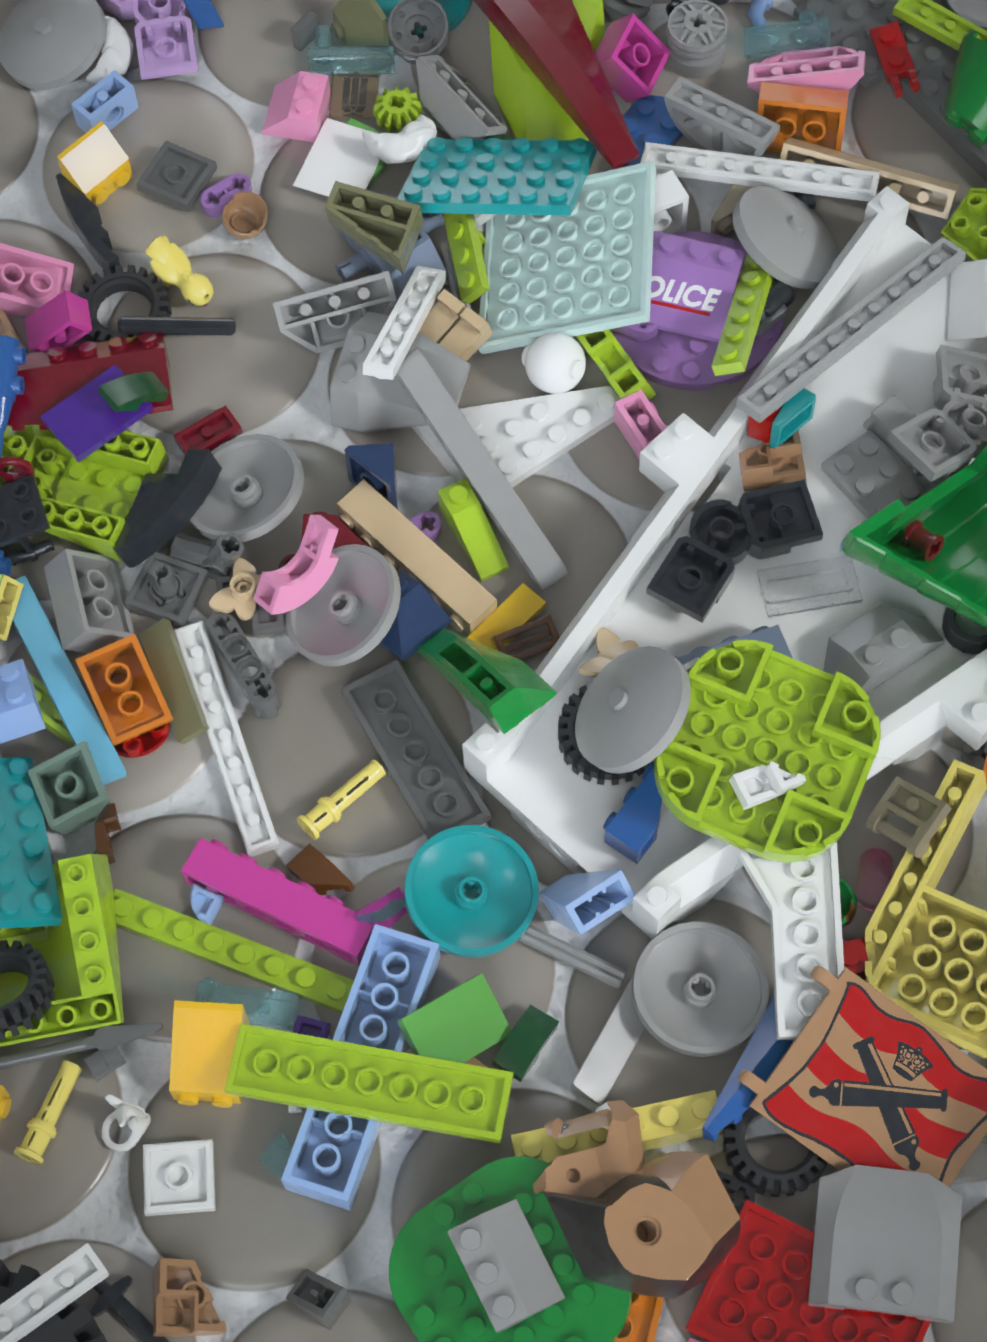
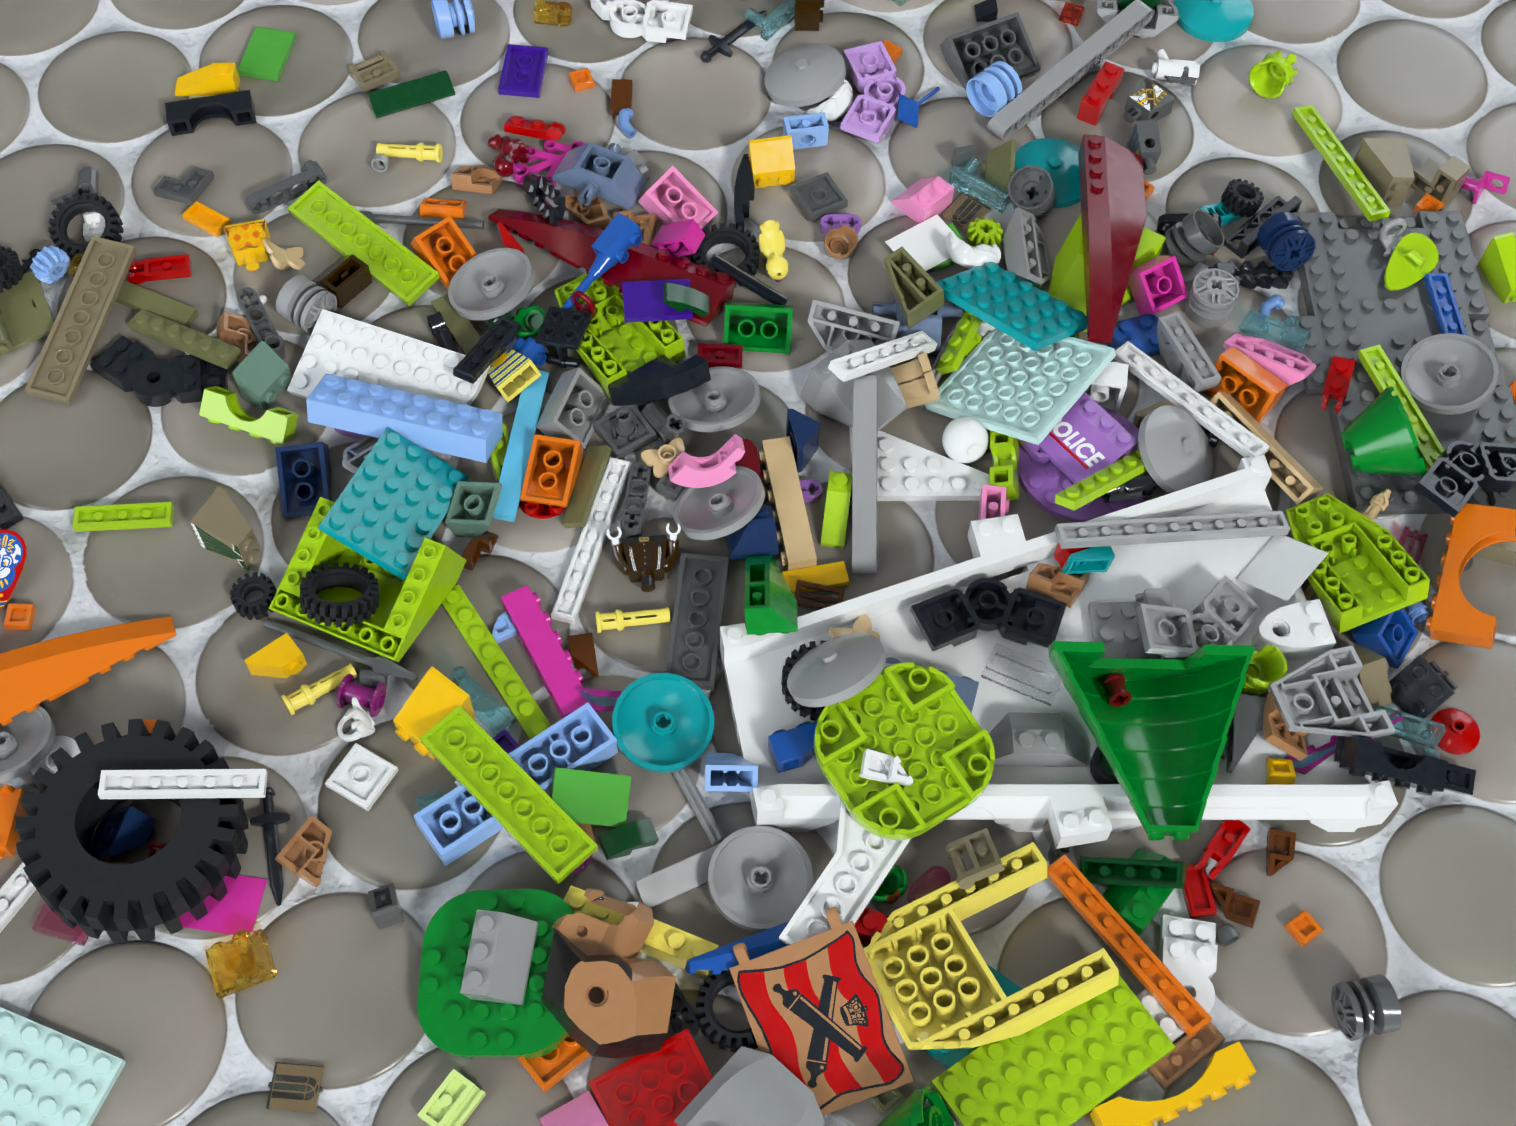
camera: 30 degrees right, 5 degrees down
(116, 1083) = (365, 695): none -> magenta hose
(226, 372) = (758, 326): none -> green slope
(305, 719) = (645, 557): none -> dark brown torso

